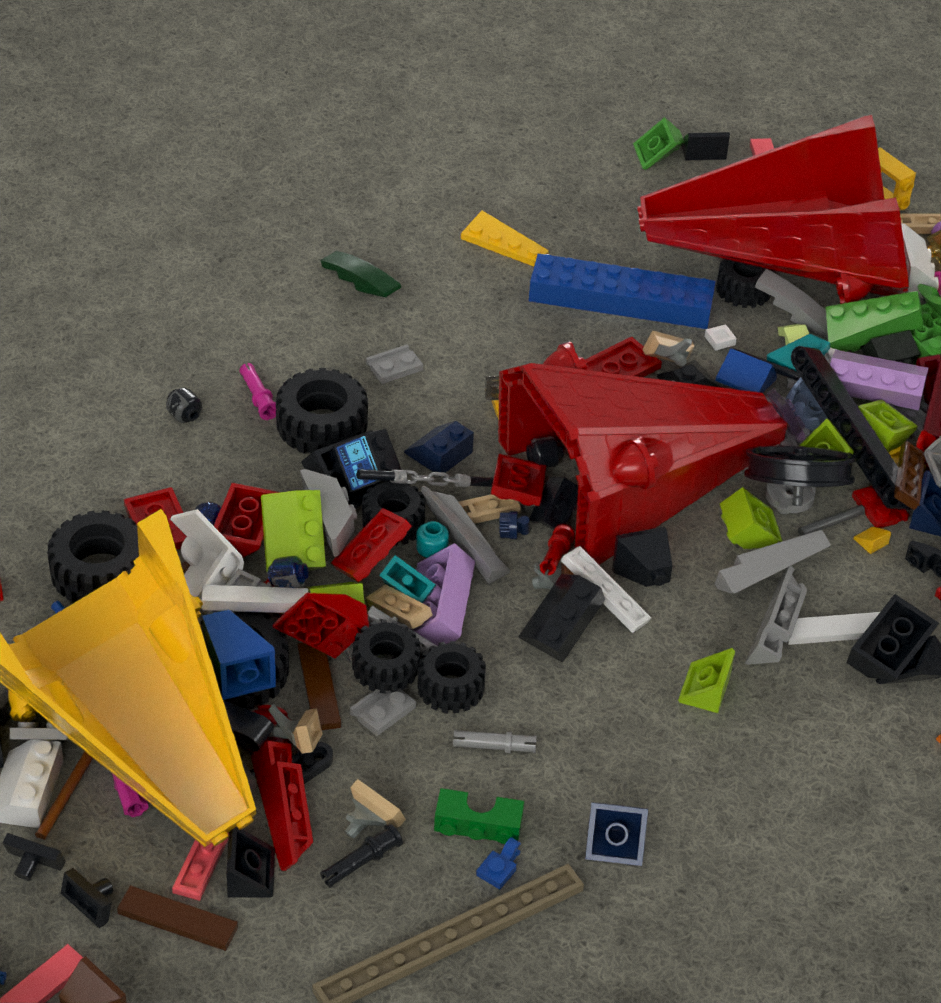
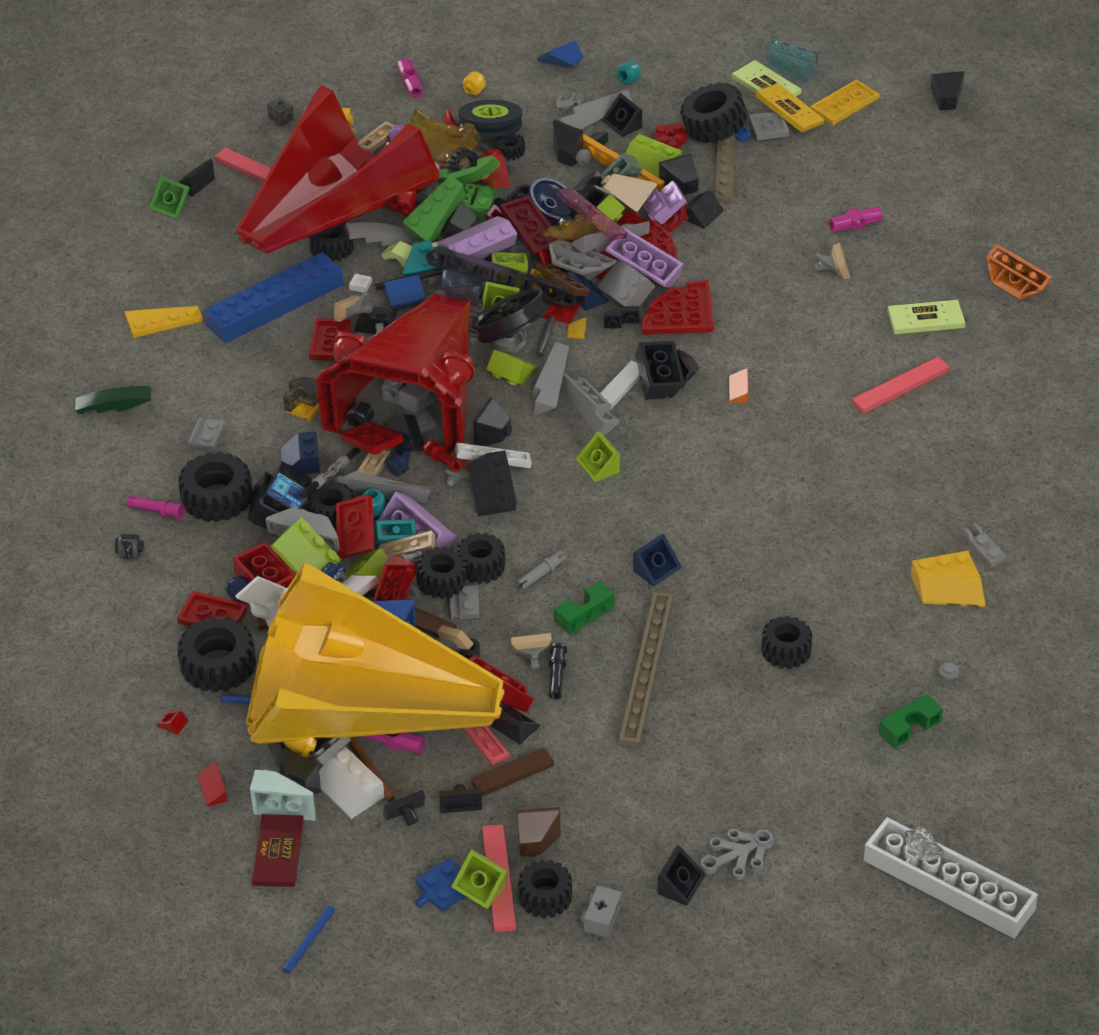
camera: 45 degrees left, 0 degrees up
(500, 867) = (622, 622): blue plate -> none

